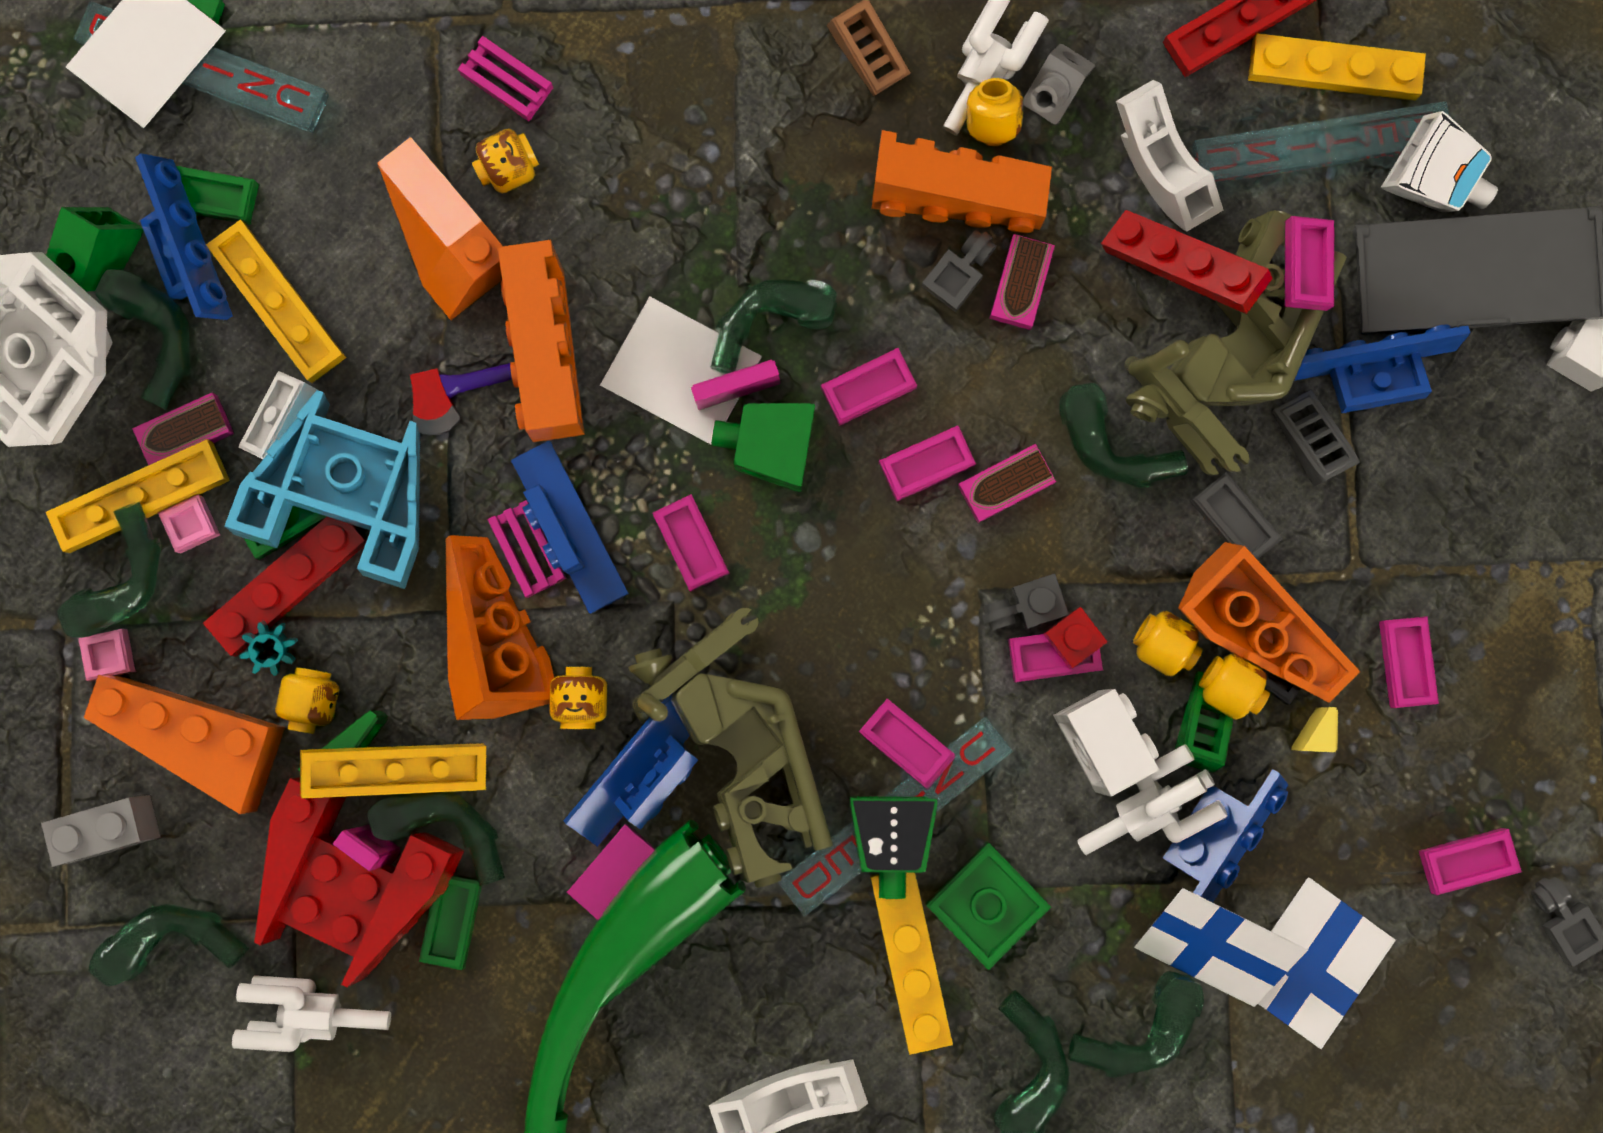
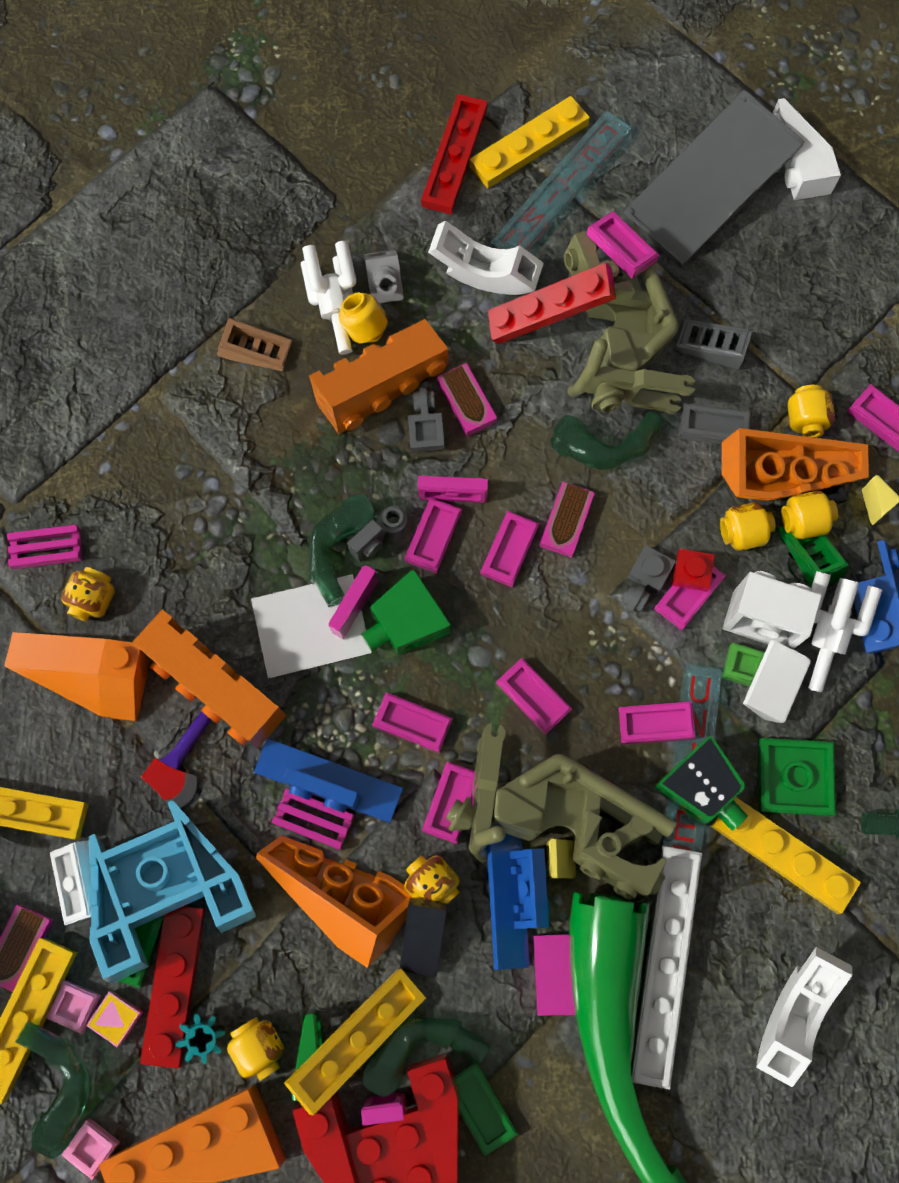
camera: 40 degrees left, 10 degrees down
(214, 565) = (114, 1018): none -> tile
(528, 737) = (423, 937): none -> black tile
(672, 634) = (454, 784): none -> dark pink tile
(707, 781) = (559, 859): none -> light yellow slope
(714, 954) = (666, 969): none -> white tile
(803, 338) = (370, 538): none -> dark grey plate
(821, 618) = (534, 696): none -> dark pink tile
(925, 359) = (453, 489): none -> dark pink tile
(1039, 765) = (741, 664): none -> bright green tile
(1051, 808) = (776, 682): none -> white slope
(1340, 590) = (811, 411): none -> yellow head
(1381, 370) = (714, 273): blue bracket -> none
(1442, 167) = (638, 143): white torso -> none

